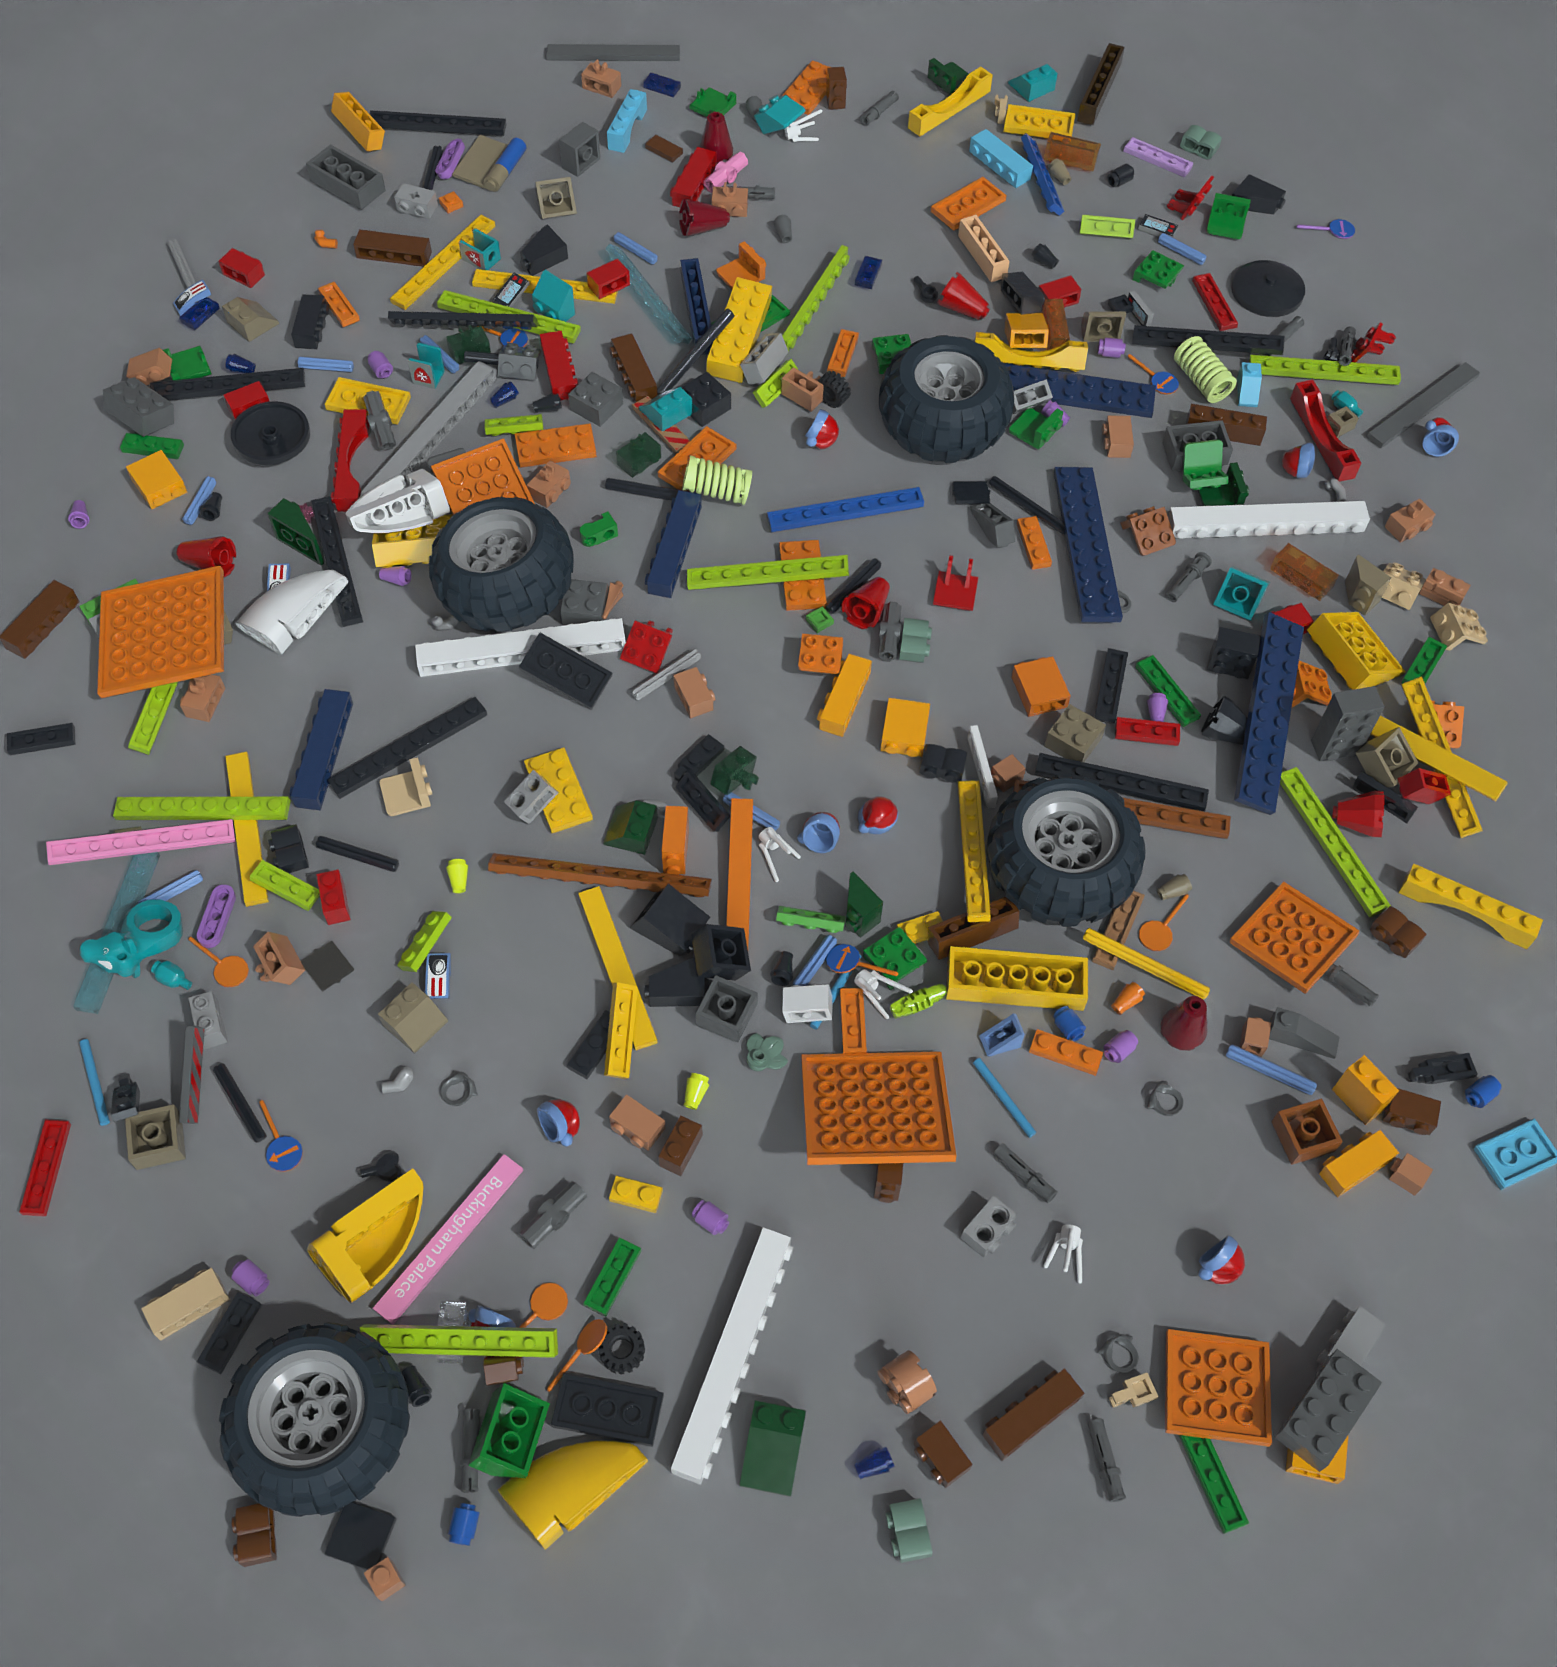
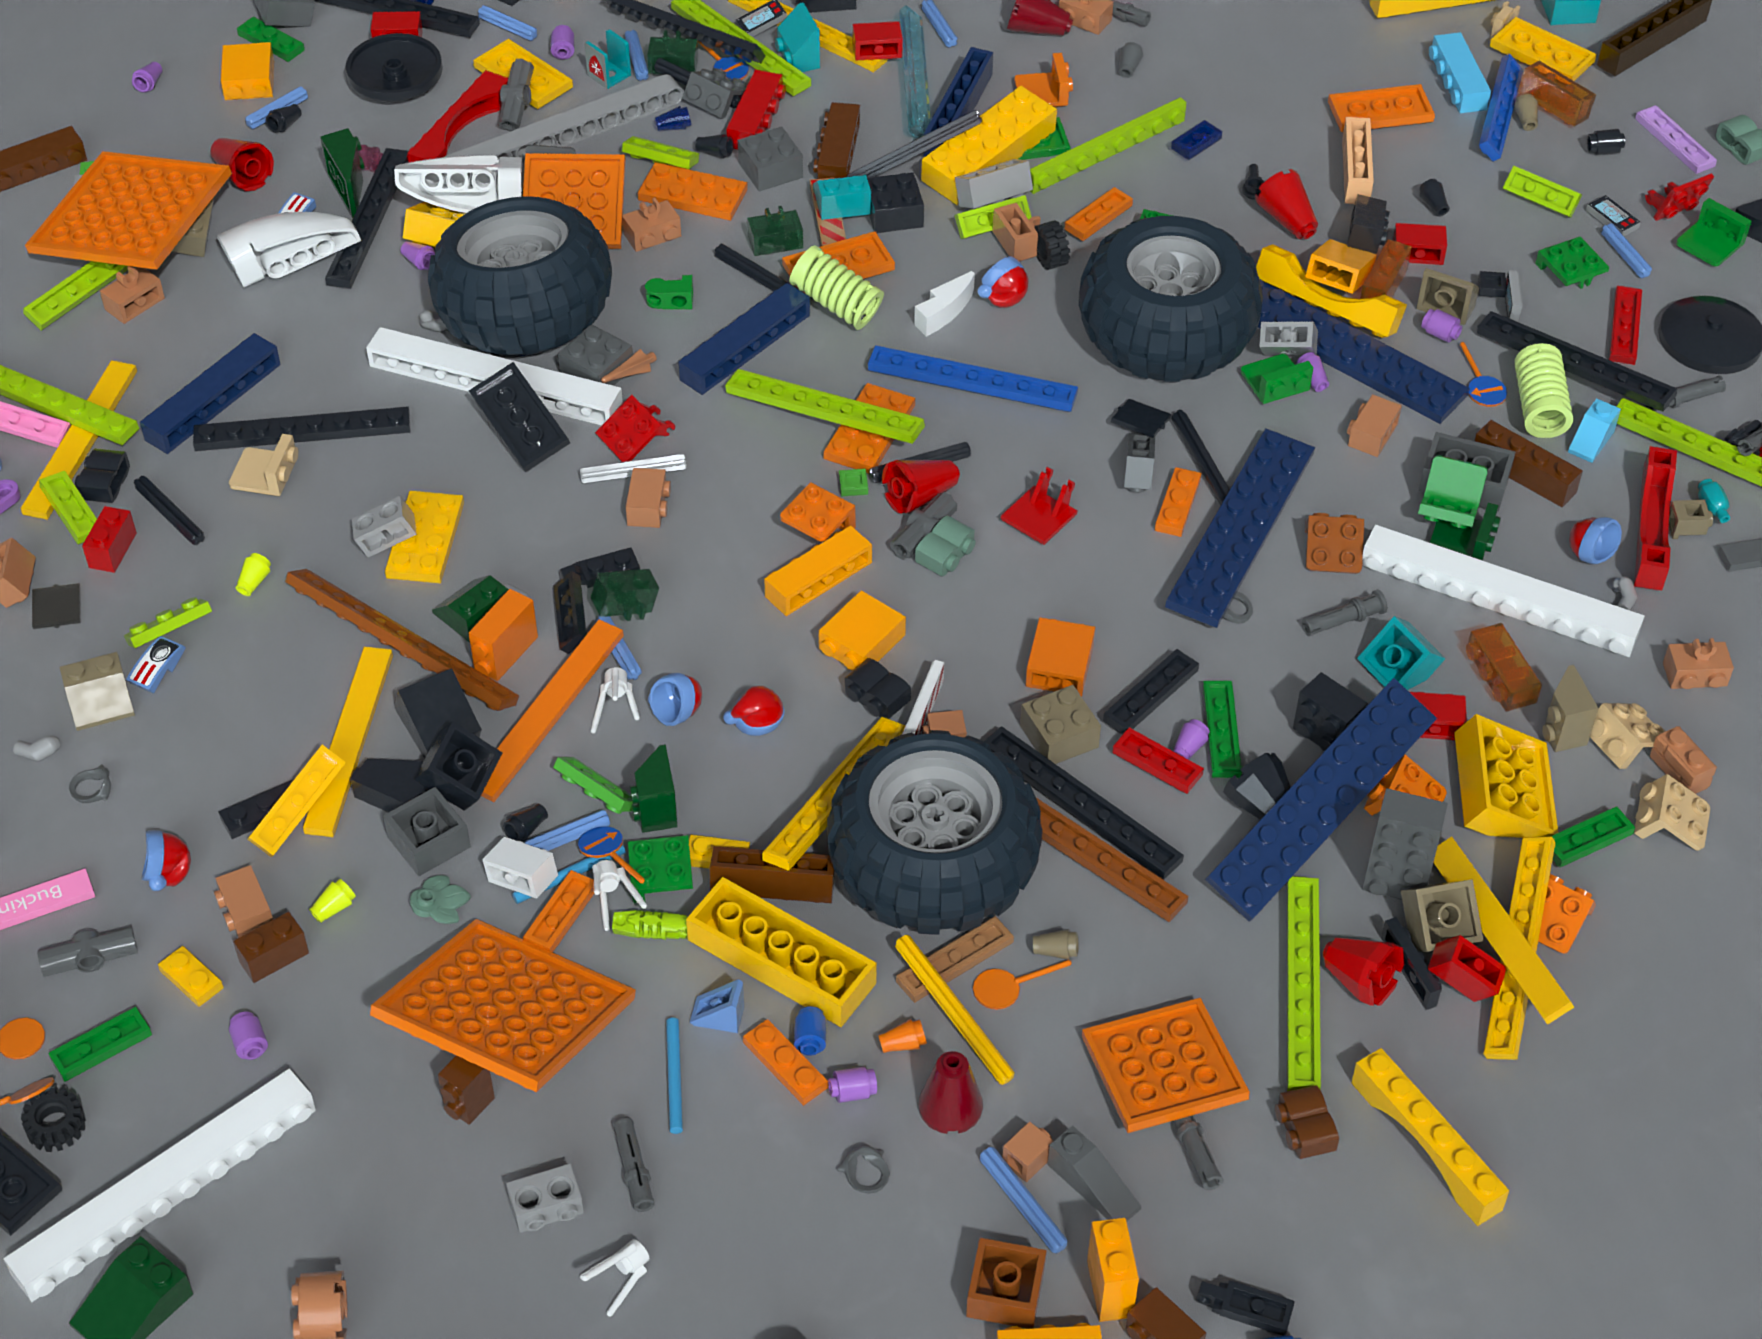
camera: 30 degrees right, 10 degrees down
(789, 462) = (944, 304): none -> white slope

